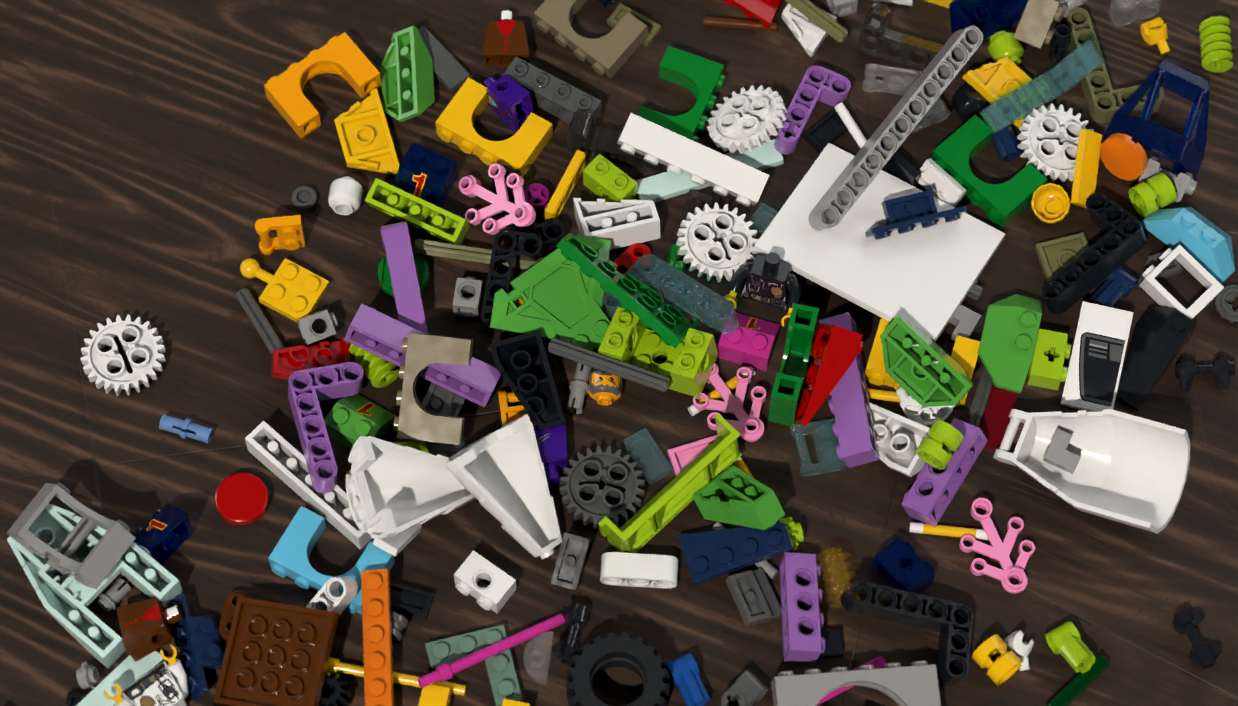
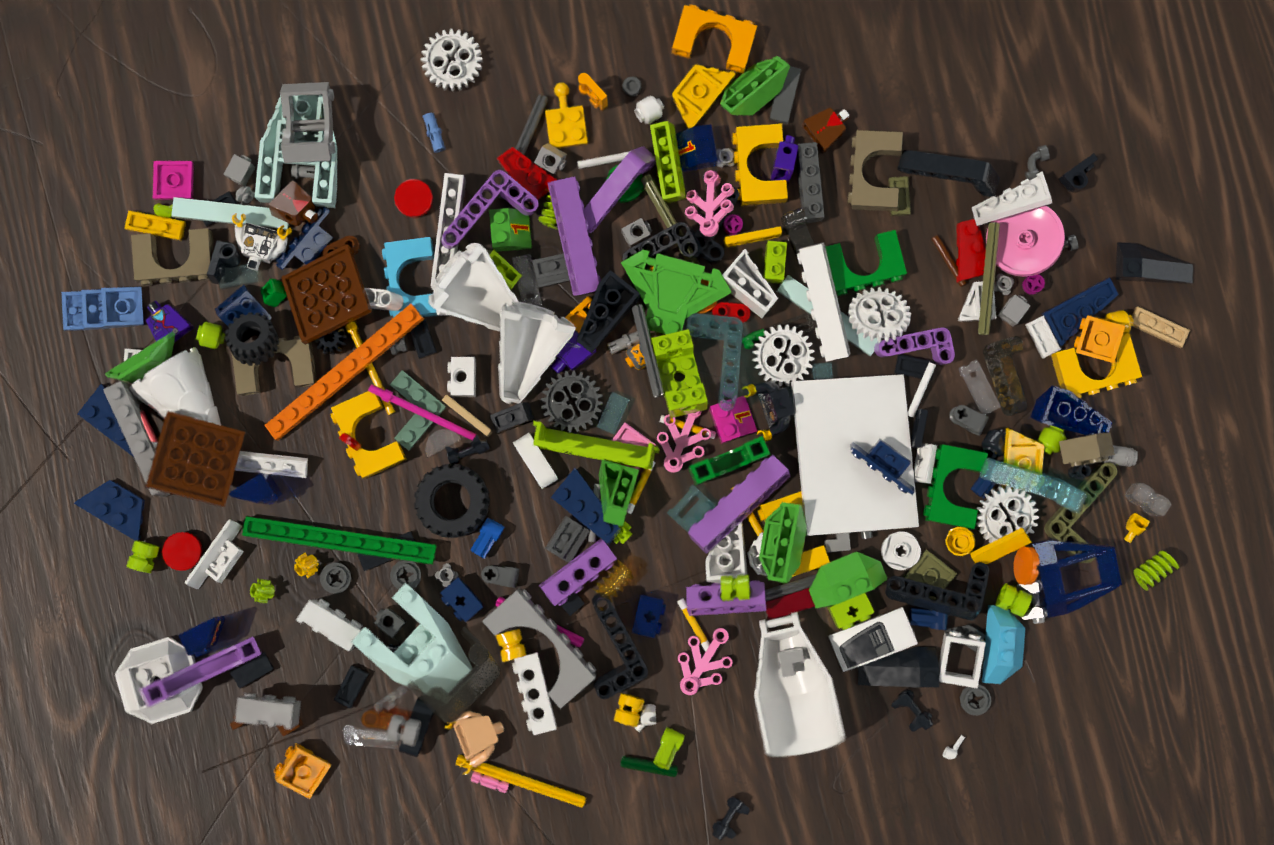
camera: 50 degrees right, 20 degrees up
(54, 662) = (239, 169): none -> light grey brick
(164, 533) = (355, 170): clear blue slope -> none
(362, 277) = (601, 160): none -> white bar
(414, 420) = (528, 263): dark tan arch -> none
(461, 154) = (729, 157): none -> light grey plate
(532, 607) = (468, 416): none -> tan tile
(631, 292) = (700, 335): green wing -> none
(833, 353) = (747, 484): red wedge -> none
(887, 132) = (946, 417): light grey beam -> none
(1018, 283) = (909, 544): none -> white plate

